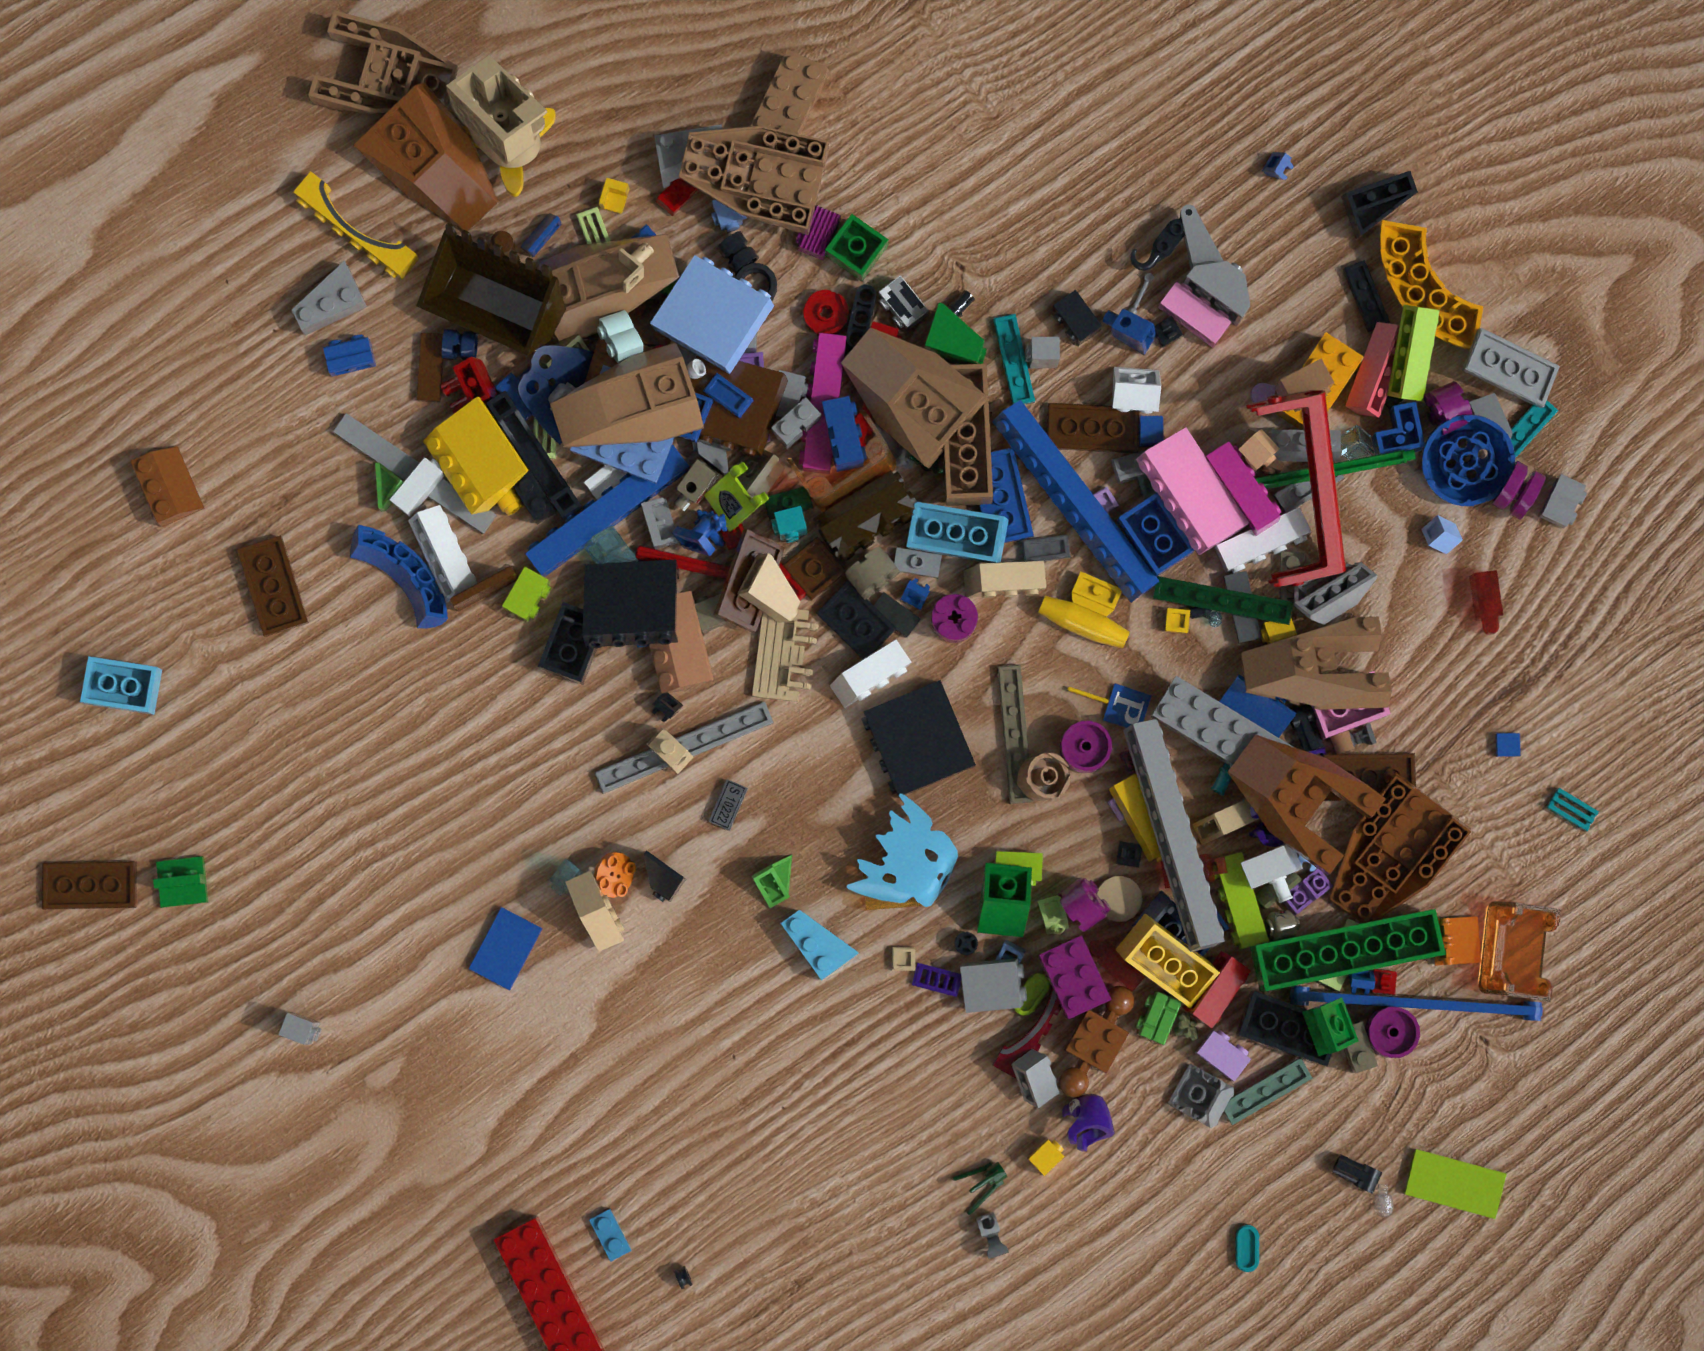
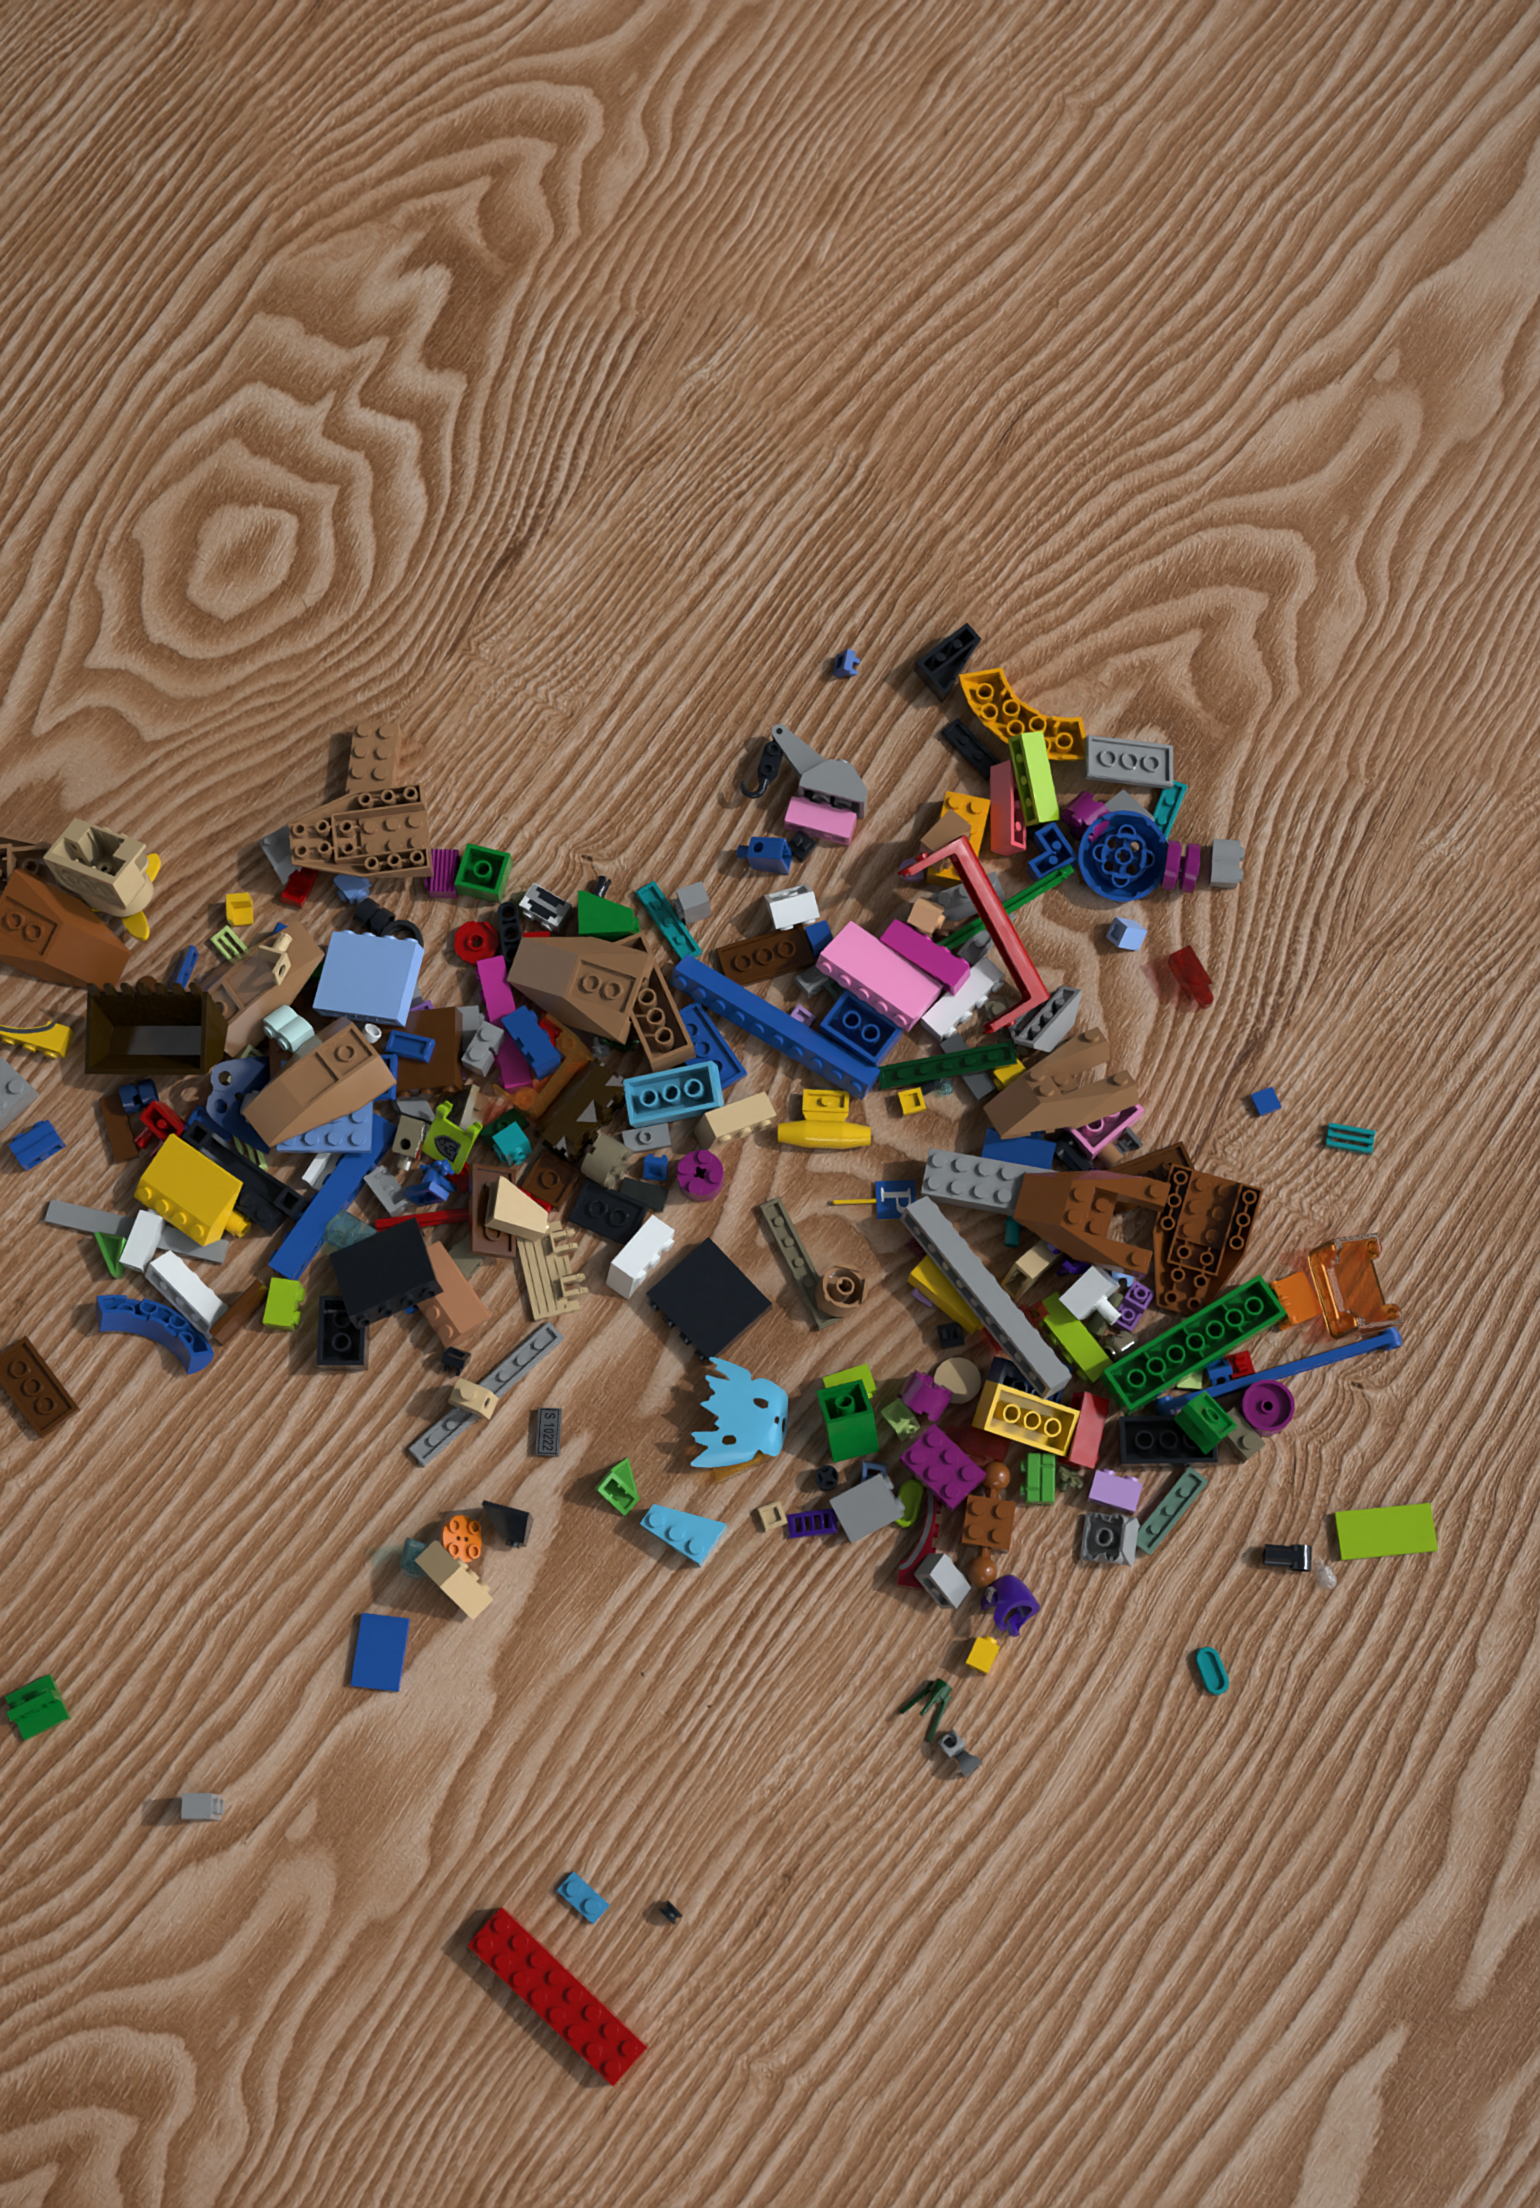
camera: 15 degrees left, 10 degrees down
(1046, 549) = (764, 1080): flat silver tile -> none
(1076, 318) = (712, 863): black brick -> none
(1097, 739) = (881, 1241): magenta wheel -> none
(1148, 278) = (765, 806): light grey hinge -> none
(1356, 443) = (1014, 880): clear light blue panel -> none

